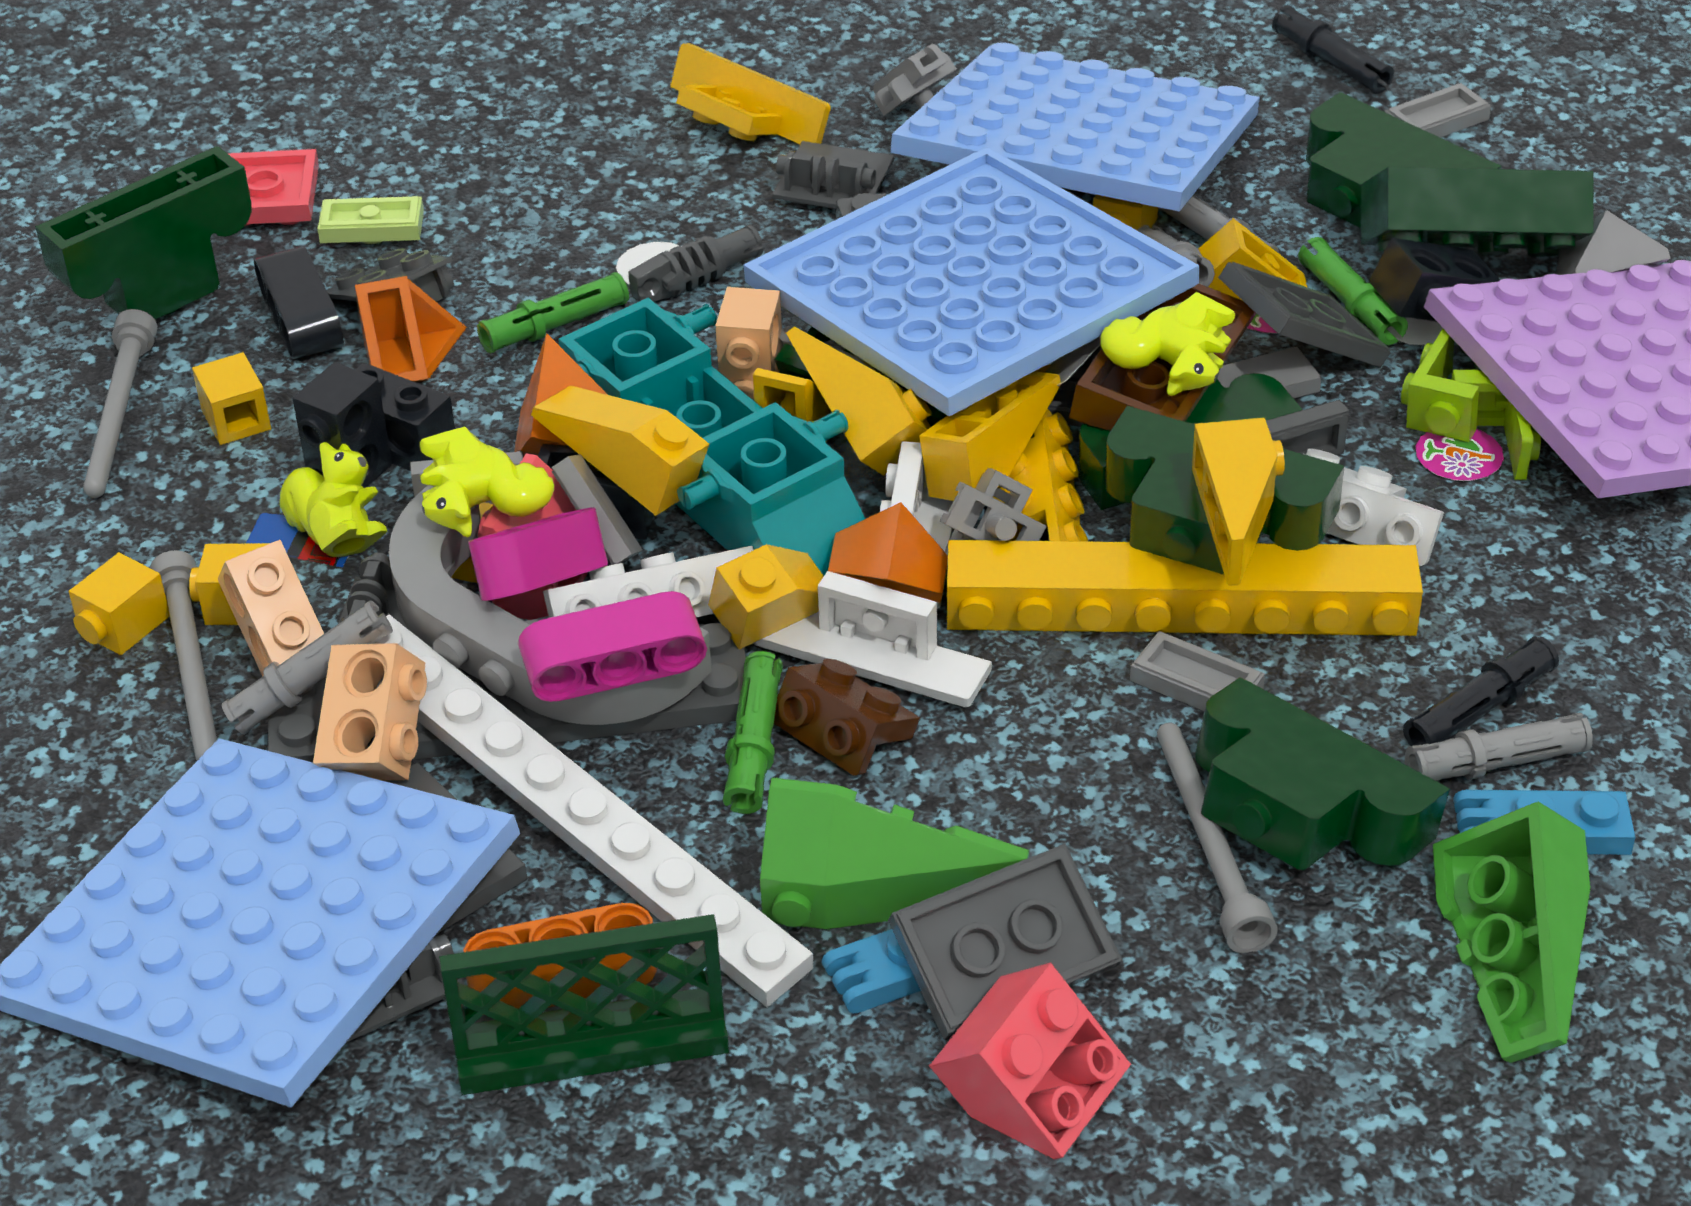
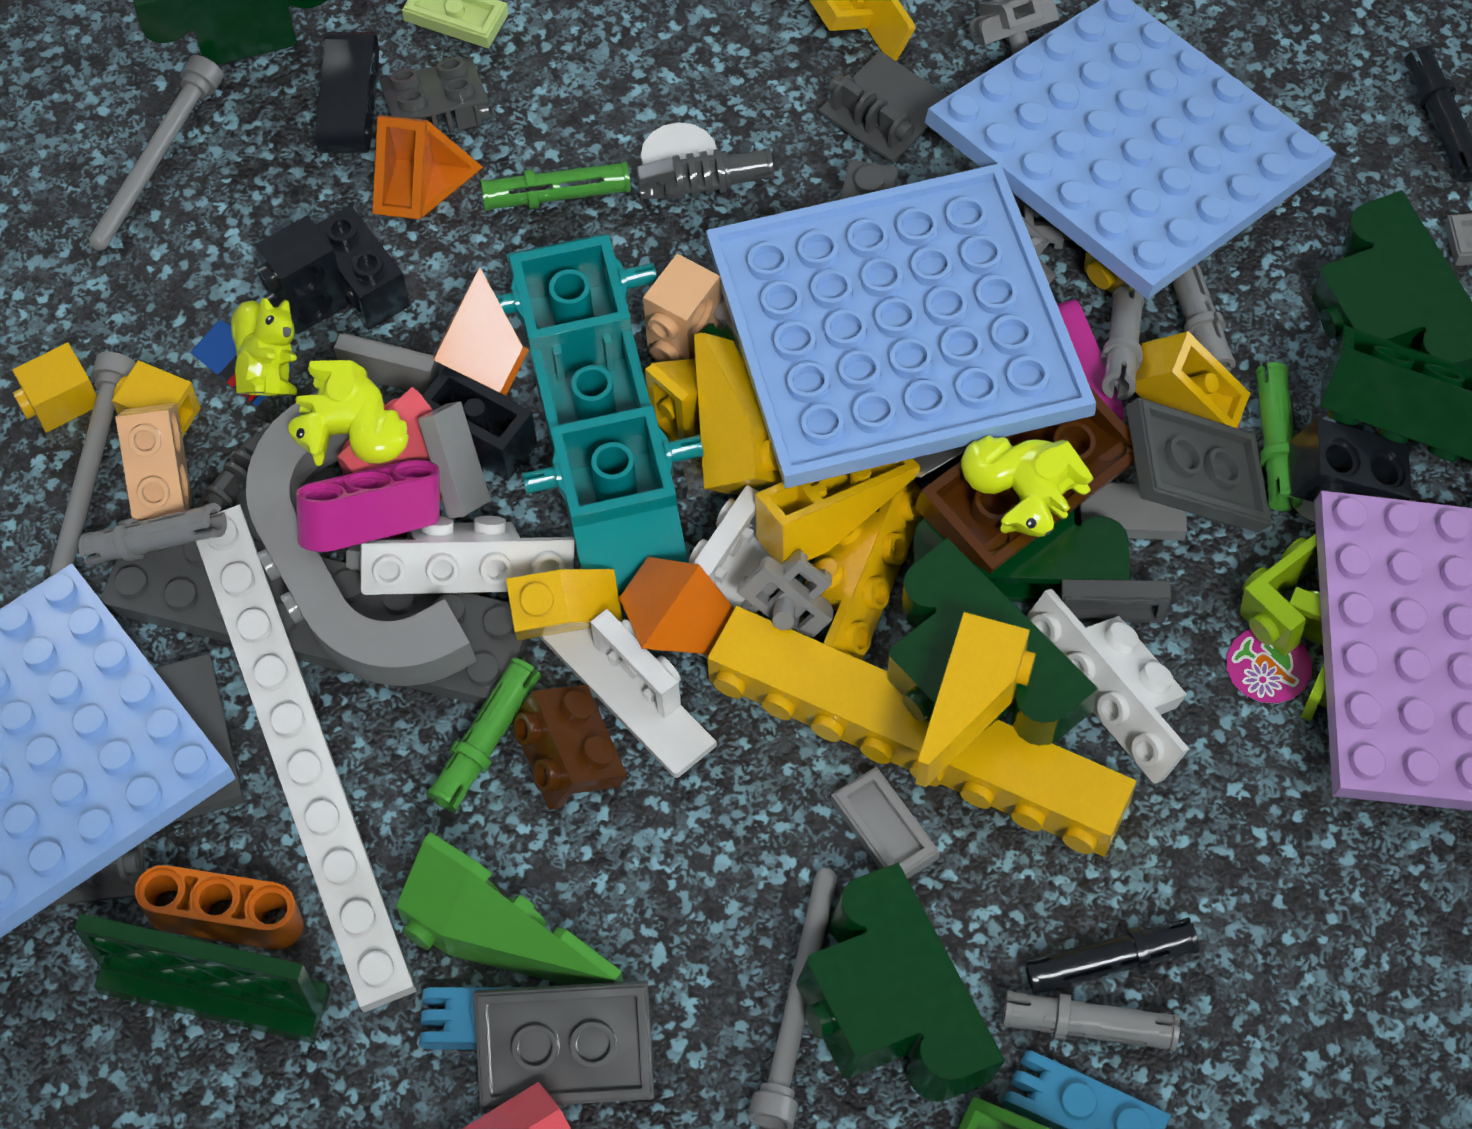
camera: 25 degrees right, 20 degrees up
(231, 398) = (242, 188): yellow brick -> none
(358, 711) = (175, 606): light nougat brick -> none
(611, 646) = (374, 636): dark pink beam -> none
(628, 441) = (498, 404): yellow slope -> none

